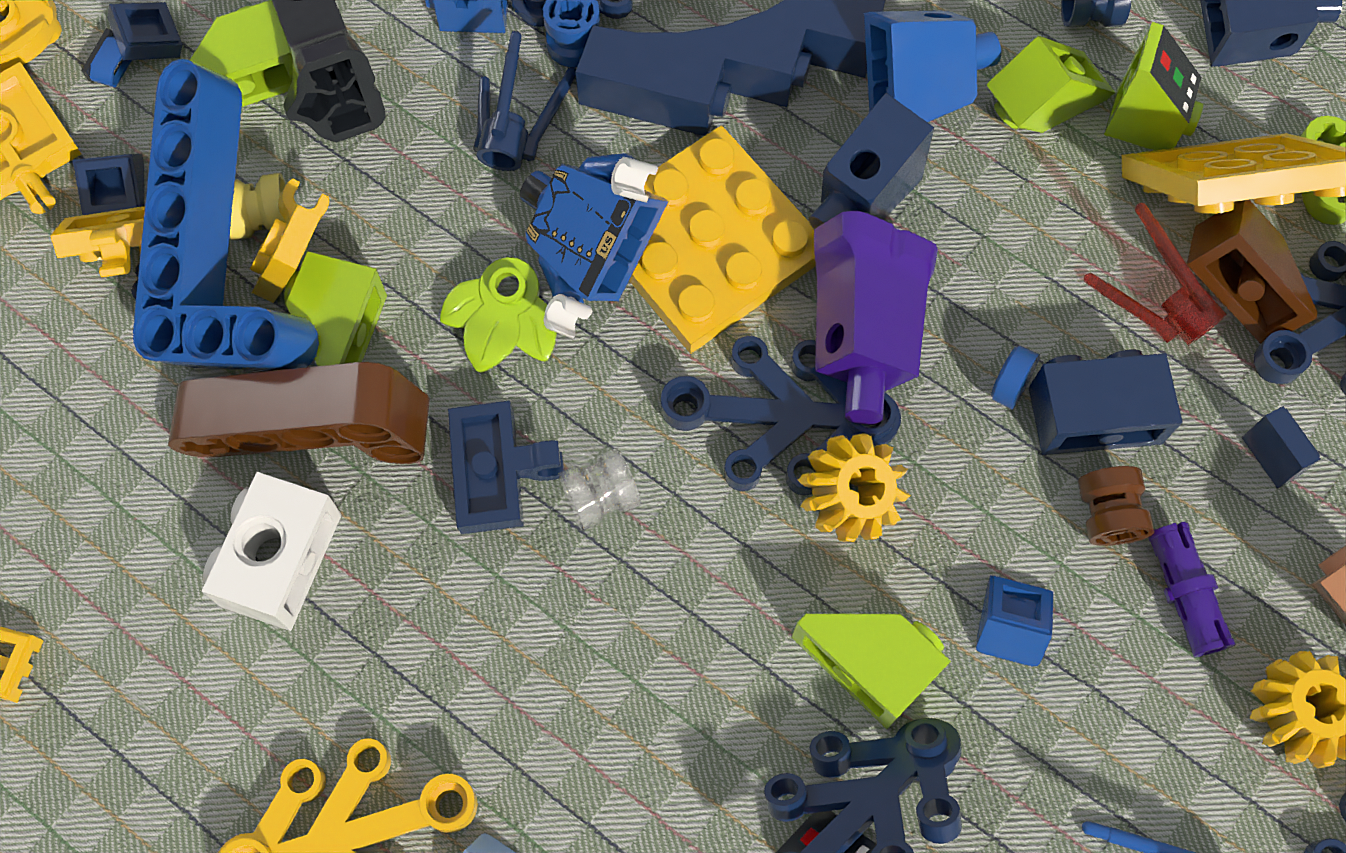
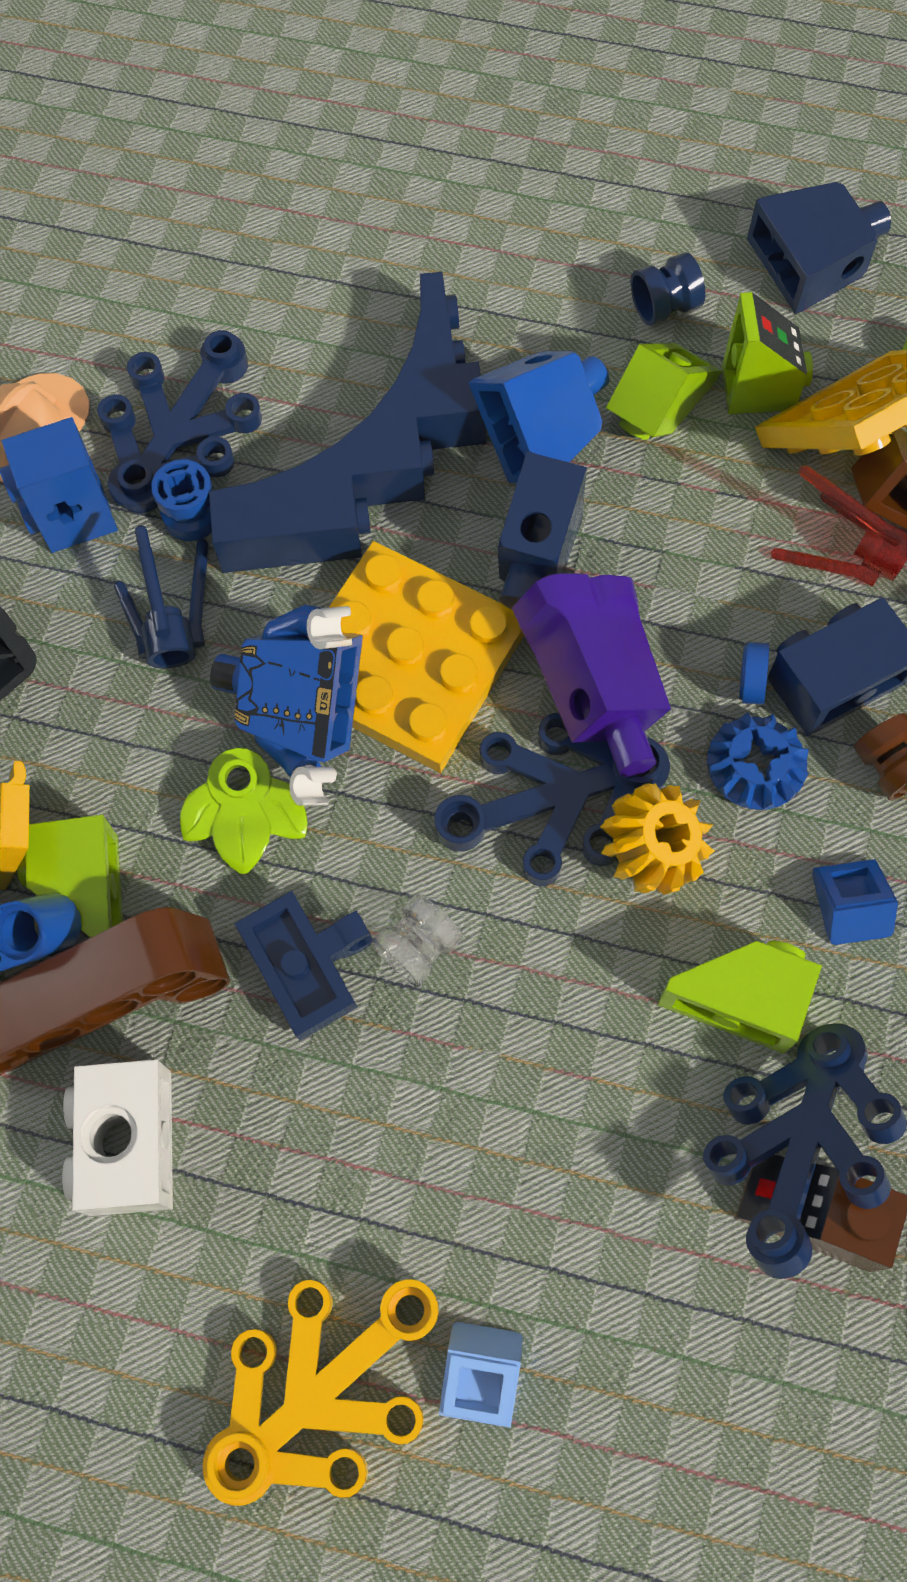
camera: 20 degrees left, 0 degrees up
(960, 471) = (742, 781): none -> blue gear

